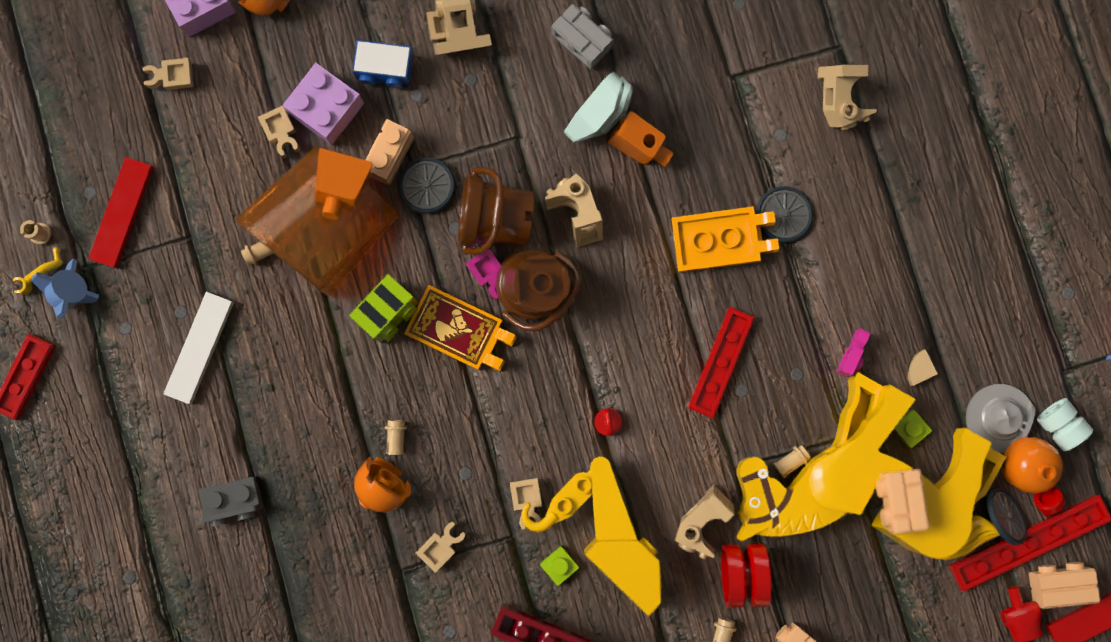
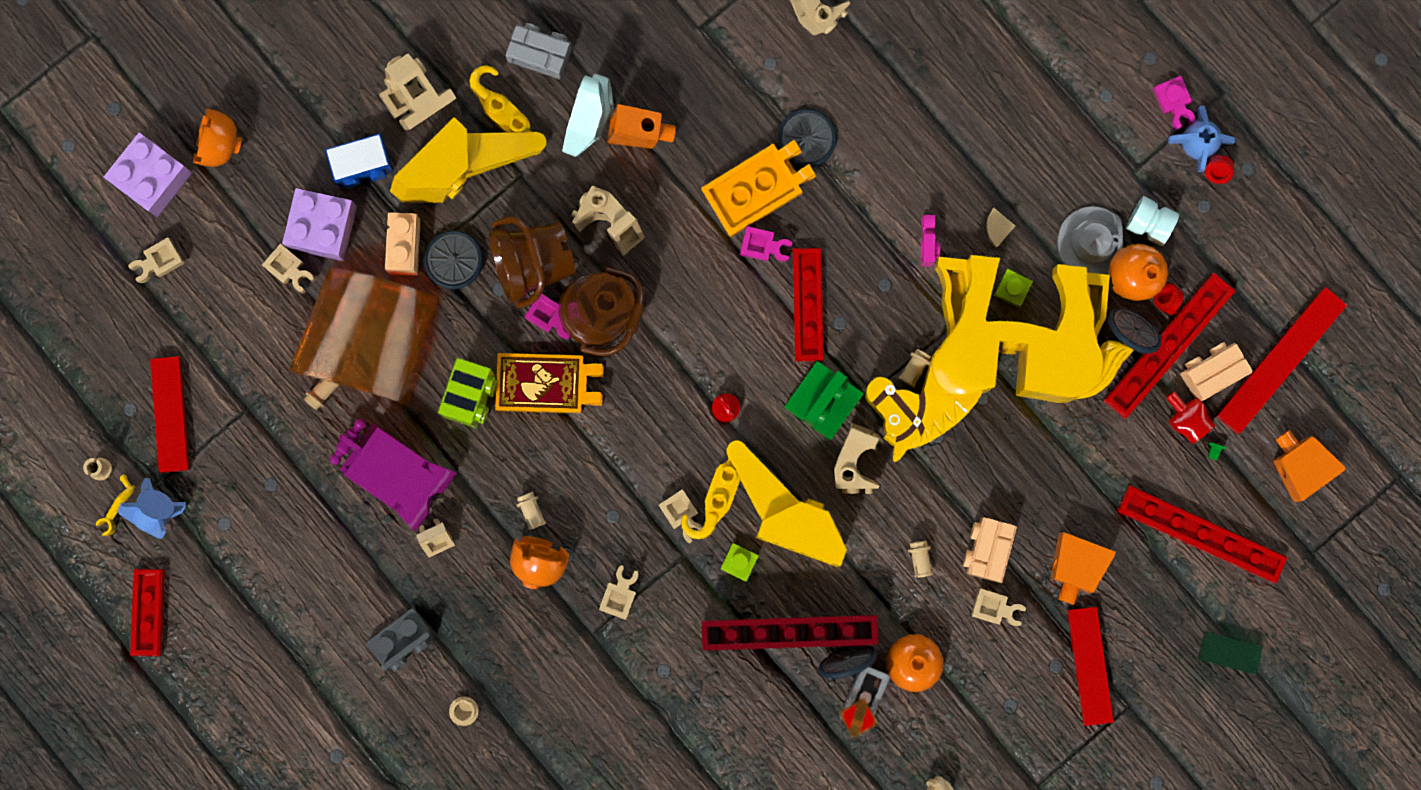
camera: 25 degrees left, 0 degrees up
(198, 348) = (304, 510): white tile -> none
(257, 589) = (463, 711): none -> tan plate
(288, 349) = (391, 471): none -> magenta piece
(299, 424) = (435, 539): none -> tan tile
(340, 181) = (371, 291): orange torso -> none
(466, 94) = (454, 154): none -> yellow slope
(698, 454) = (824, 400): none -> green bracket
(702, 290) = (760, 244): none -> dark pink plate
(745, 575) = (916, 491): red wheel -> none
(903, 501) = (1026, 356): light nougat brick -> none

